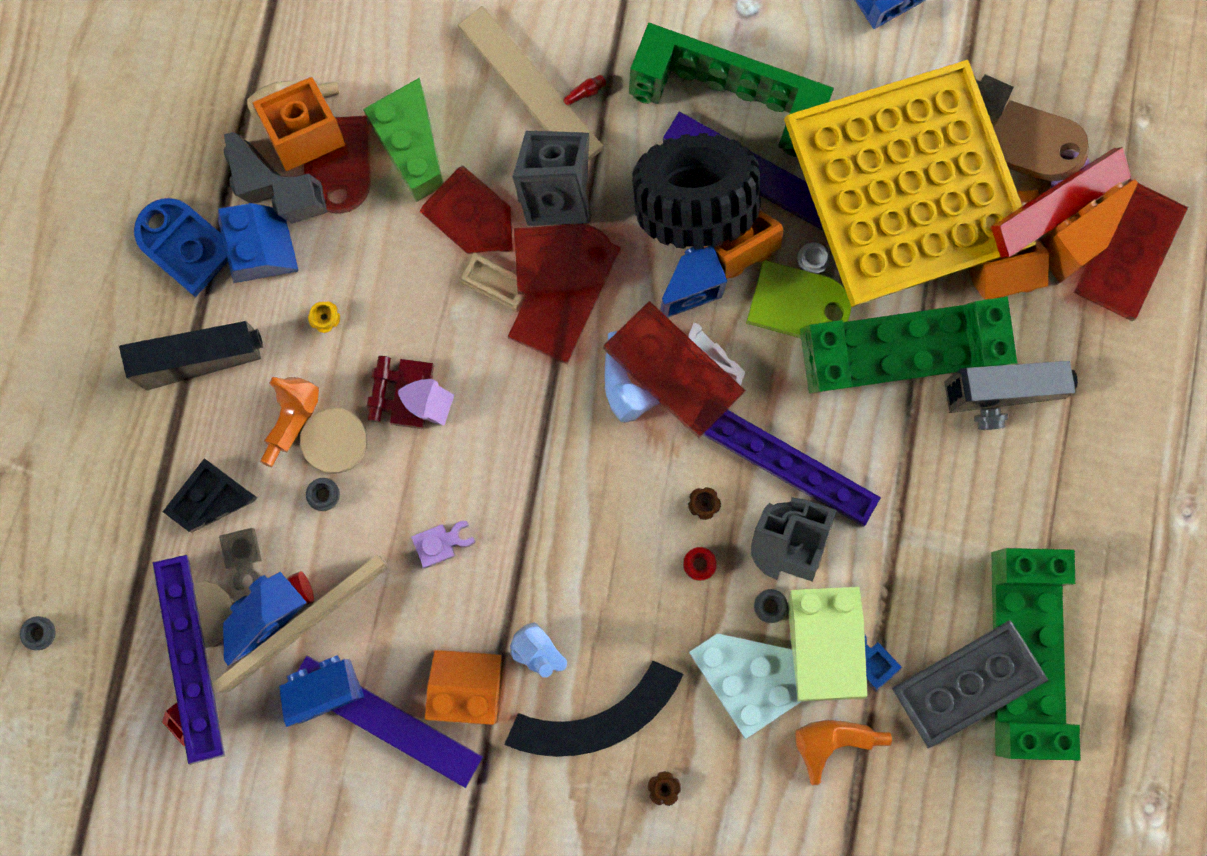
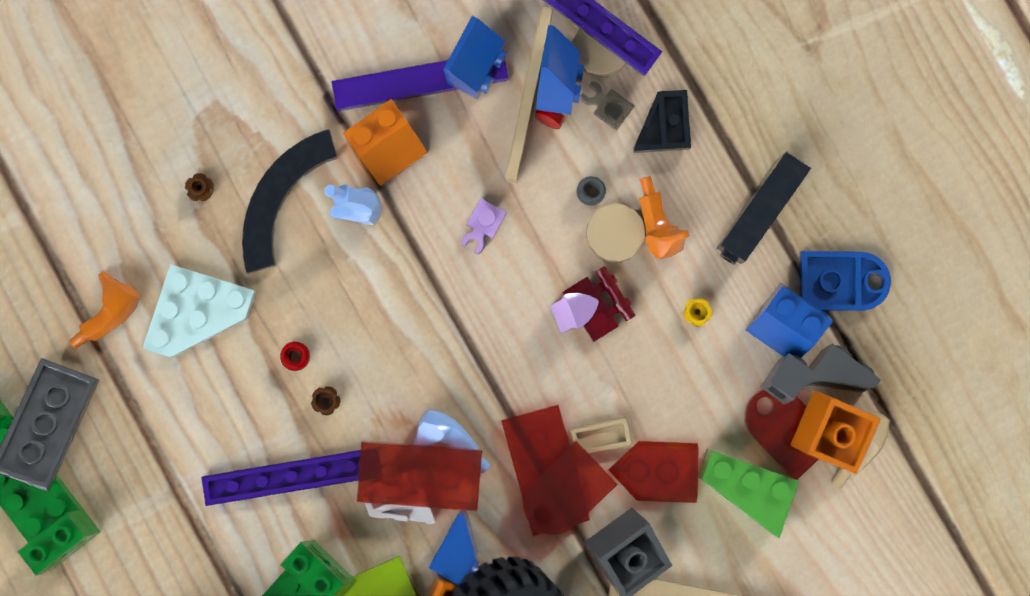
camera: 145 degrees right, 5 degrees up
(552, 195) = (608, 530): dark grey tile -> none
(781, 606) = (214, 367): dark grey plate -> none
(792, 538) = (241, 424): dark grey brick -> none
(828, 643) = (161, 371): yellowish green slope -> none
(879, 665) = (121, 385): blue plate -> none

